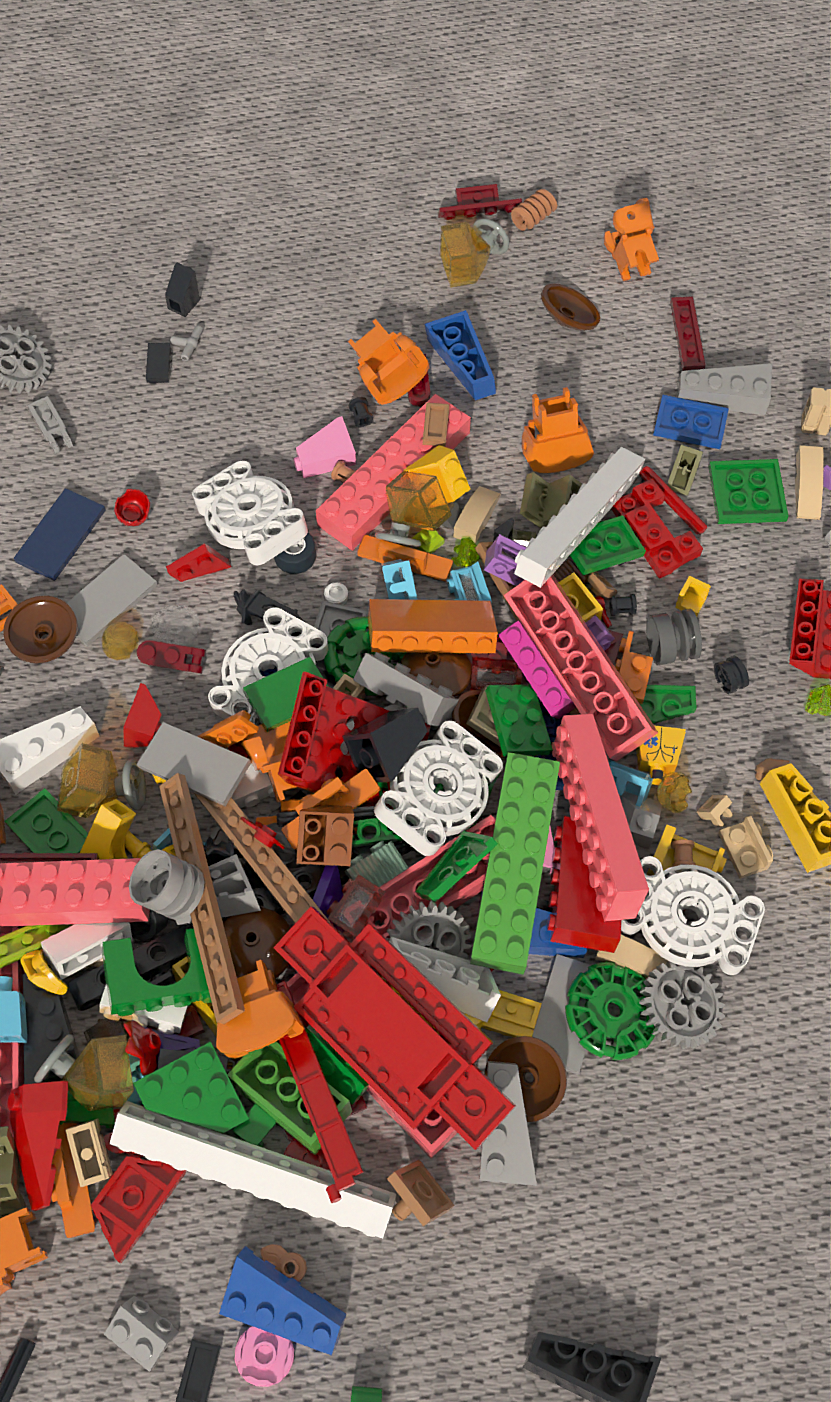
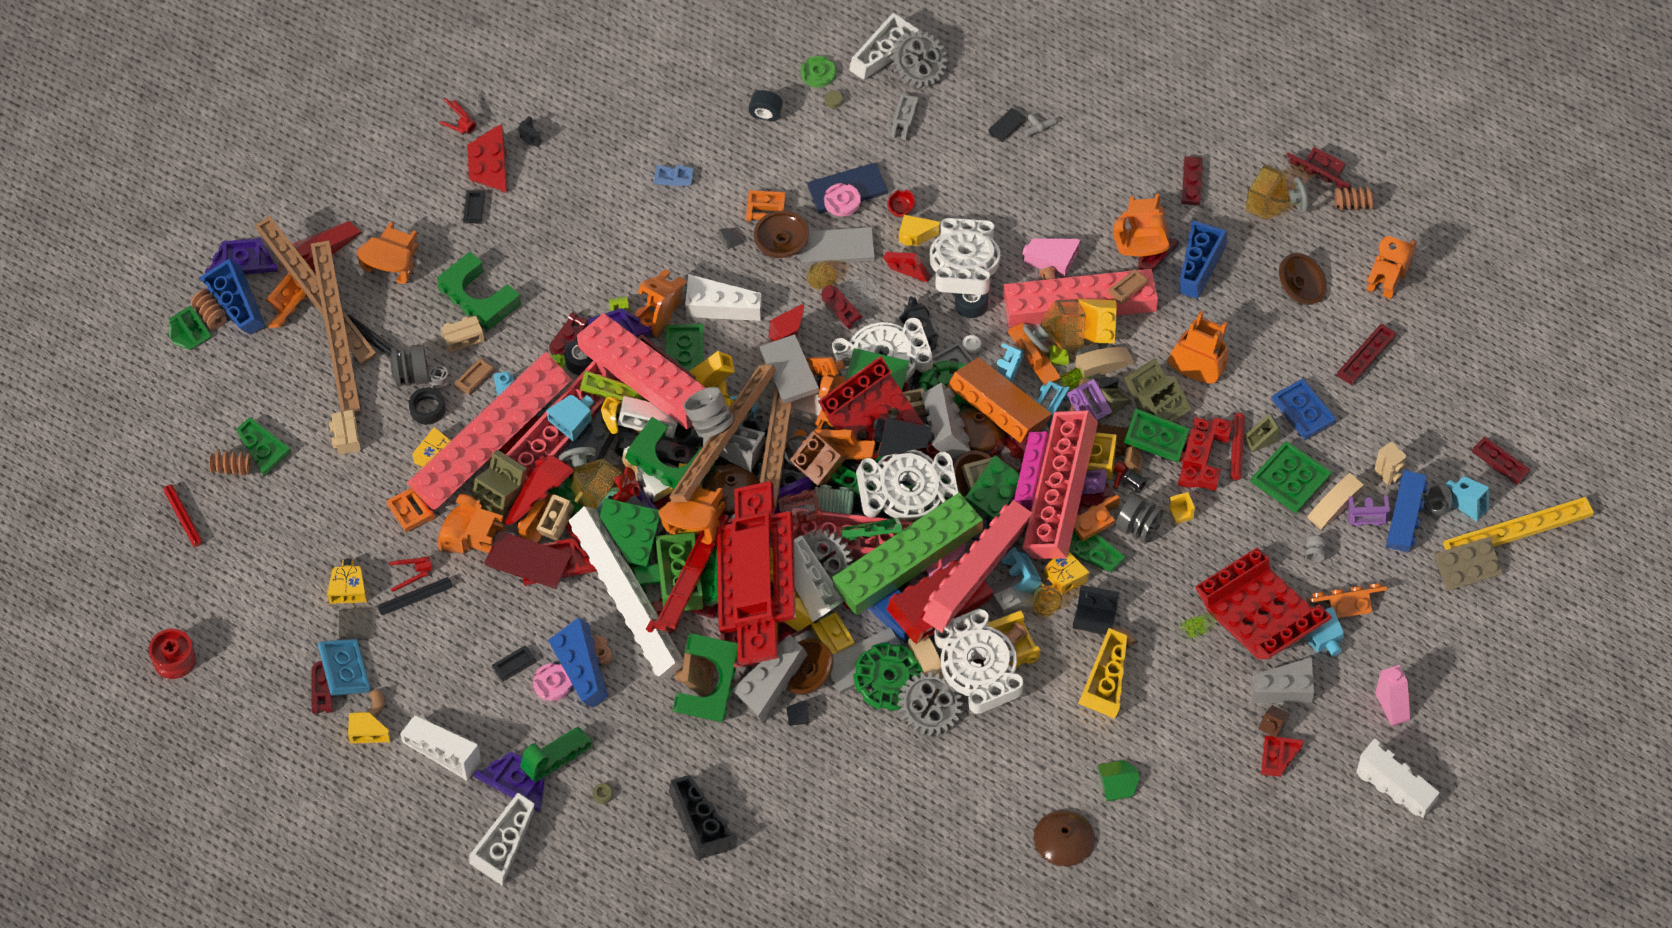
camera: 45 degrees right, 5 degrees down
(68, 548) = (842, 199): none -> bright pink tile
(92, 780) = (733, 338): clear yellow piece -> none
(100, 1231) = (528, 559): none -> dark red tile
(141, 1332) = (504, 621): light grey bracket -> none
(173, 523) = (917, 230): none -> yellow slope
(182, 290) = (1063, 88): black slope -> none
(263, 833) = (788, 432): red plate -> none
(361, 412) = (1098, 247): black bush -> none
(378, 293) = (1192, 180): none -> dark red plate
(474, 1217) = (723, 656): none -> green arch
(562, 1138) = (798, 713): none -> black slope
(578, 517) = (1152, 402): white brick -> none
(714, 808) = (1061, 628): tan tile -> none
(728, 763) = (1096, 609): none -> black bracket
(731, 674) = (1153, 567): black wheel -> none
(736, 387) = (1351, 407): light grey wedge -> none
(746, 847) = (1056, 663): tan bracket -> none

